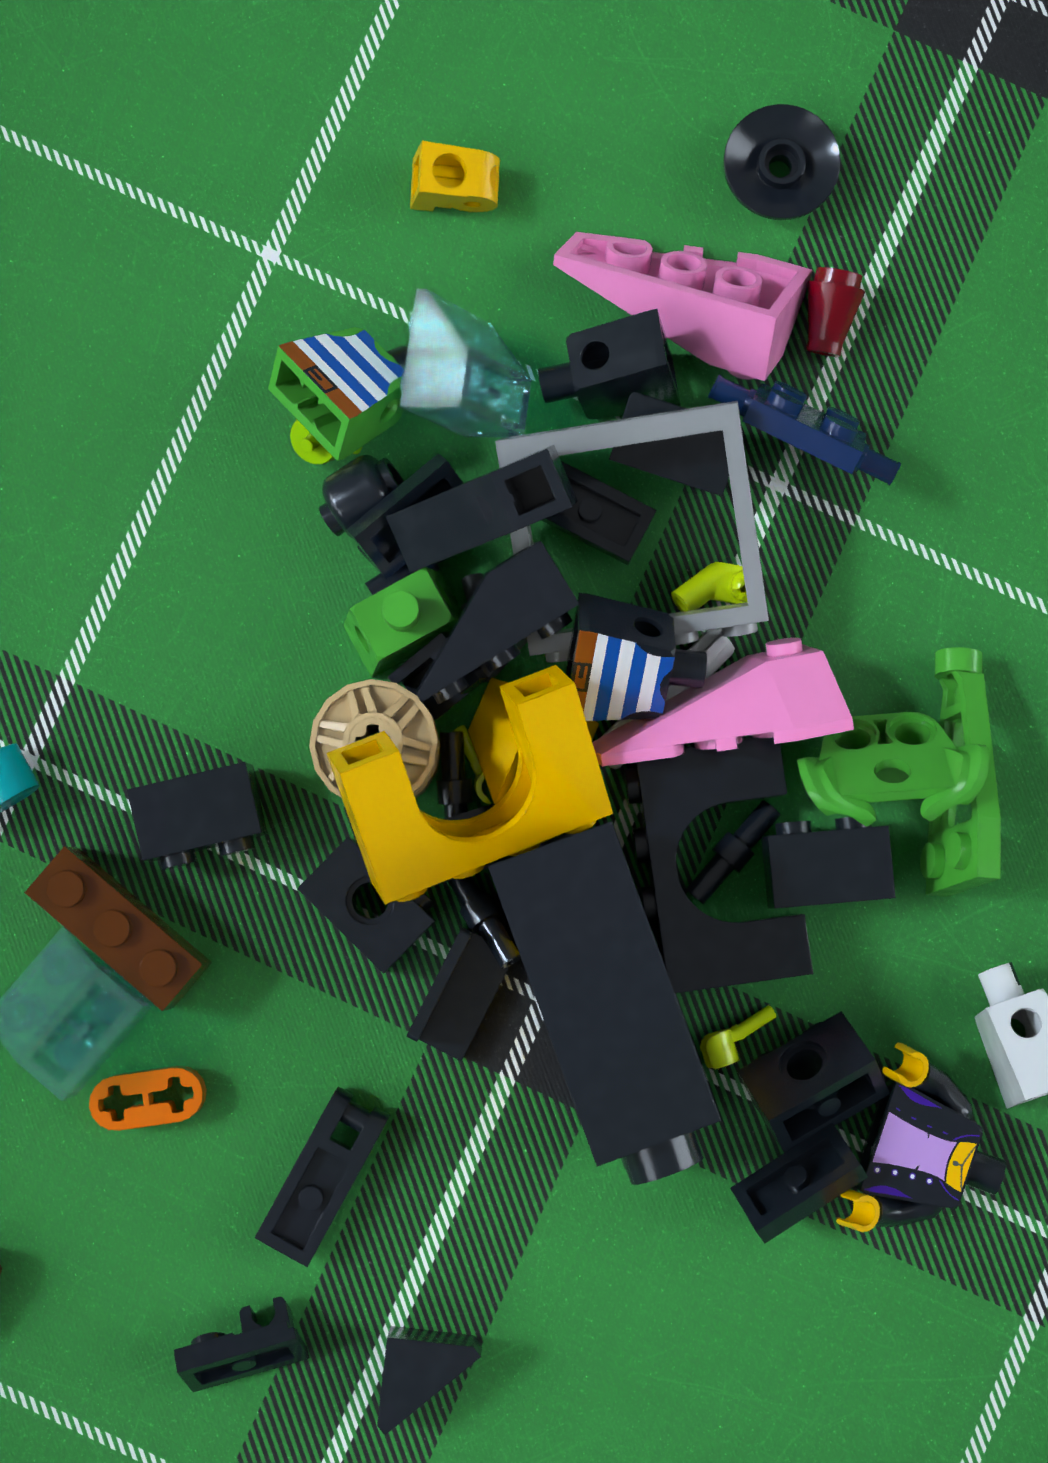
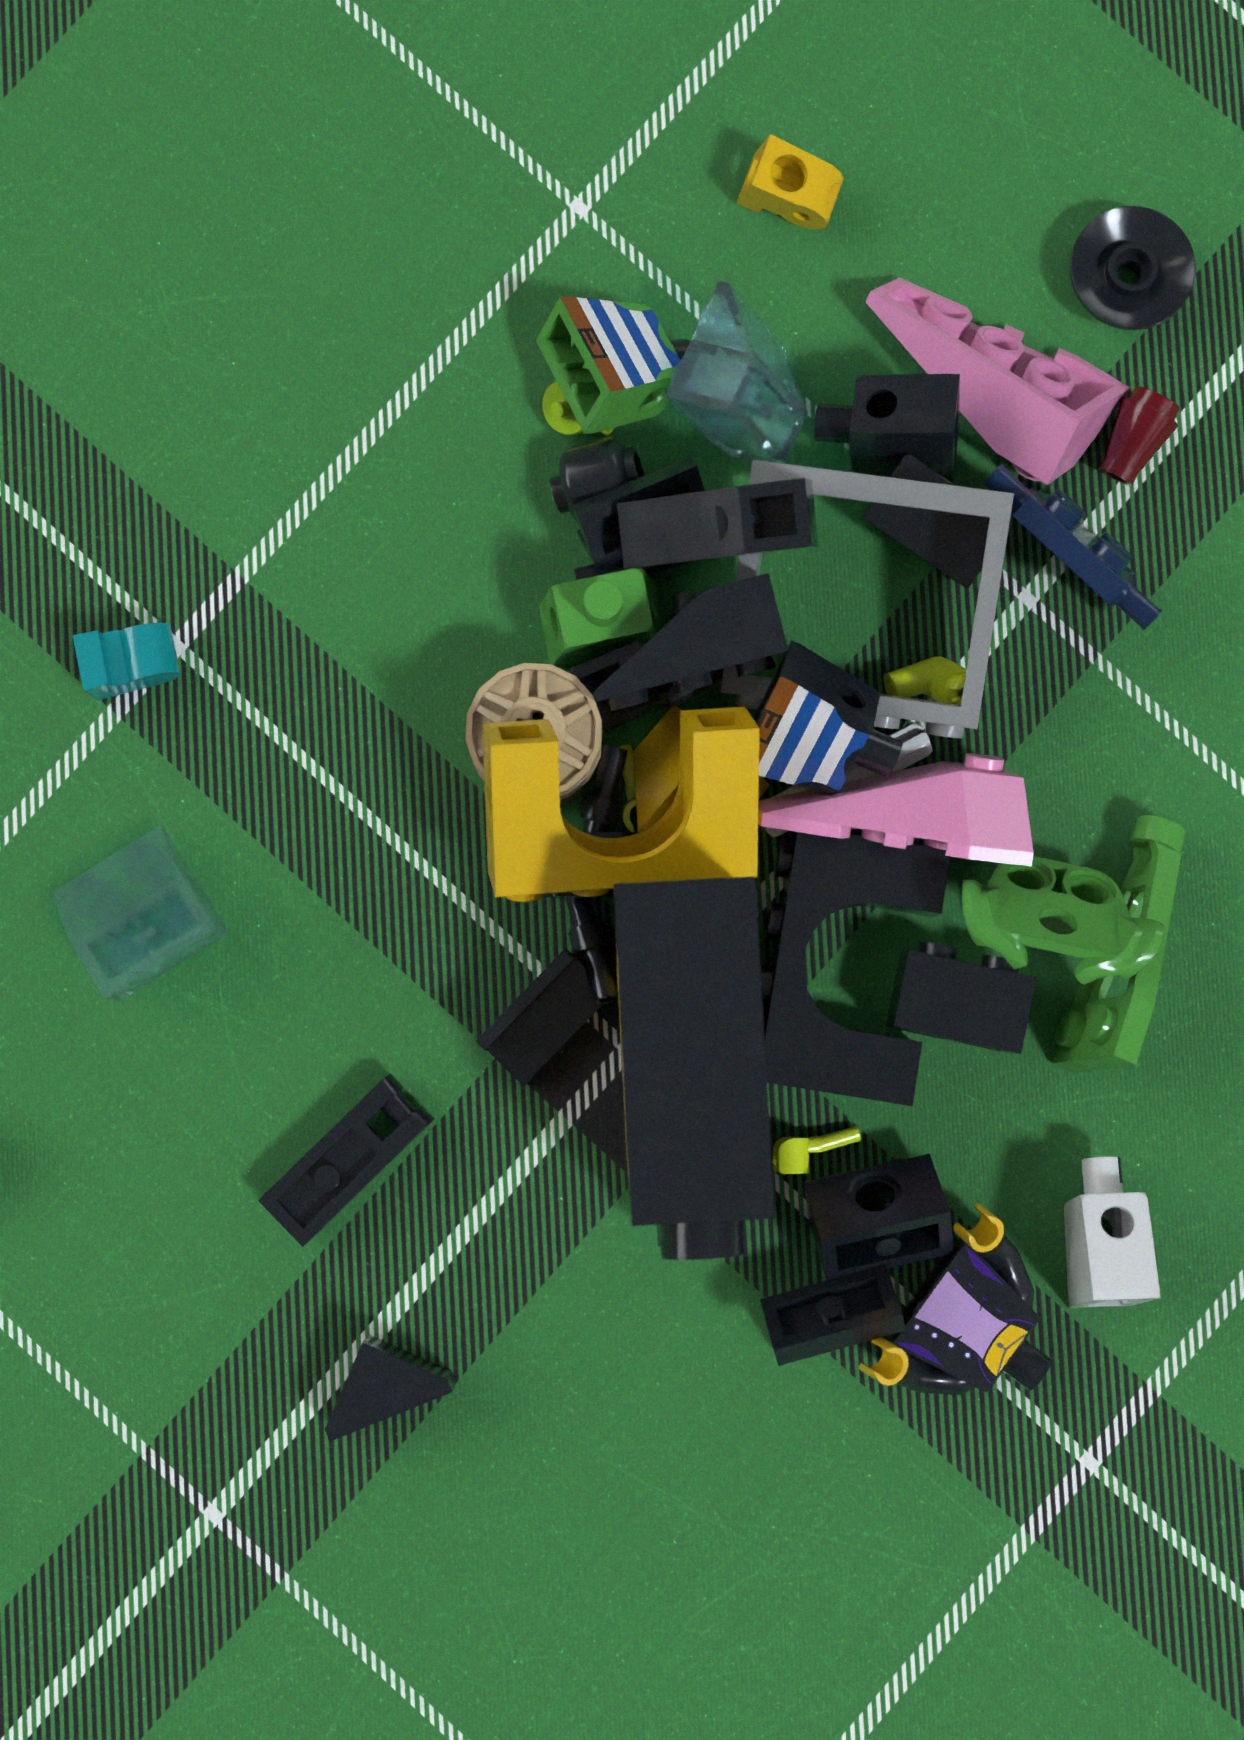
camera: 15 degrees right, 0 degrees up
(118, 927) = (215, 842): reddish brown brick -> none
(150, 1112) = (195, 1010): orange beam -> none
(198, 814) = (332, 751): black brick -> none
(224, 1357) = (192, 1313): black plate -> none
(381, 939) = (485, 935): black brick -> none
(603, 517) = (836, 575): black plate -> none
(733, 852) = (867, 958): black bar -> none

